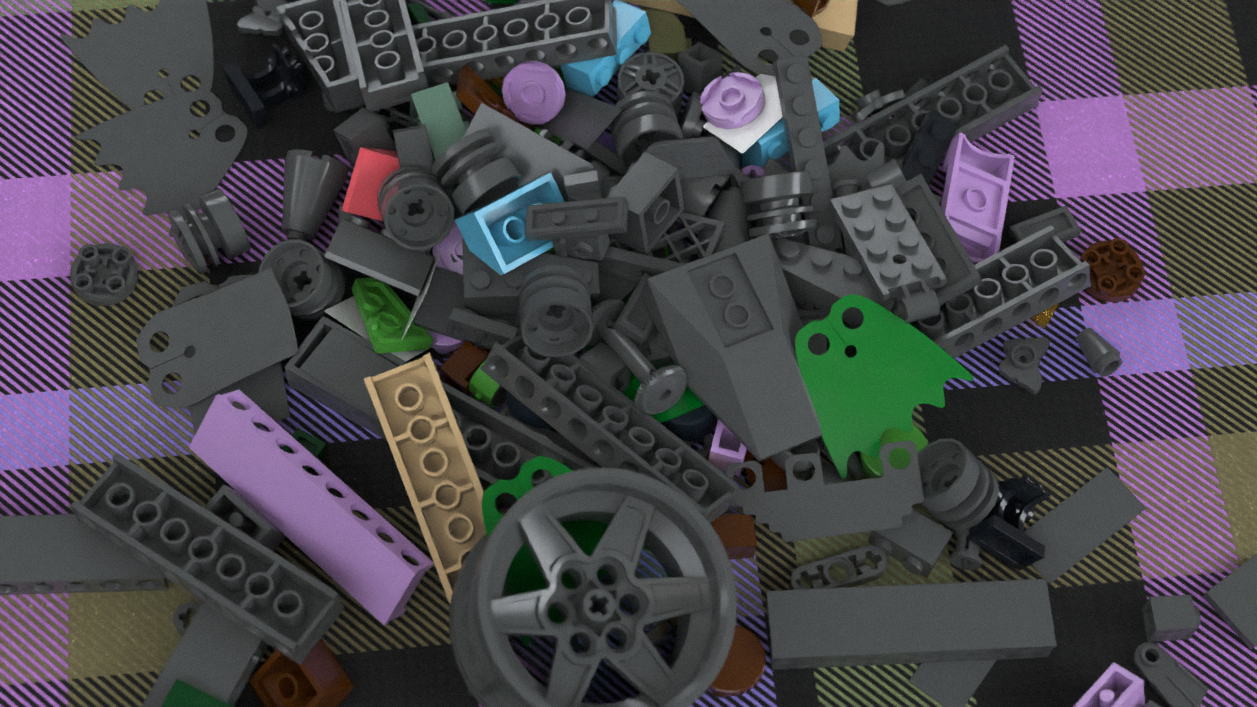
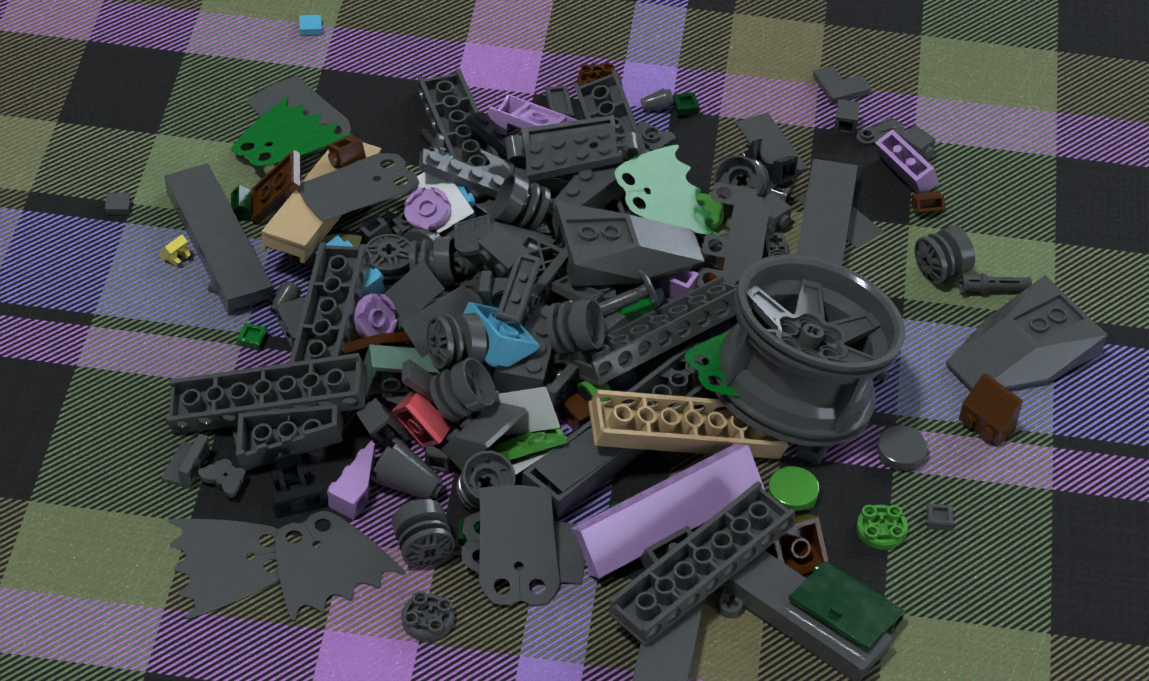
camera: 75 degrees left, 15 degrees down
(268, 143) = (352, 489): none -> lavender slope
(405, 665) = (794, 488): none -> bright green tile
(1107, 390) = (686, 104): none -> dark green plate

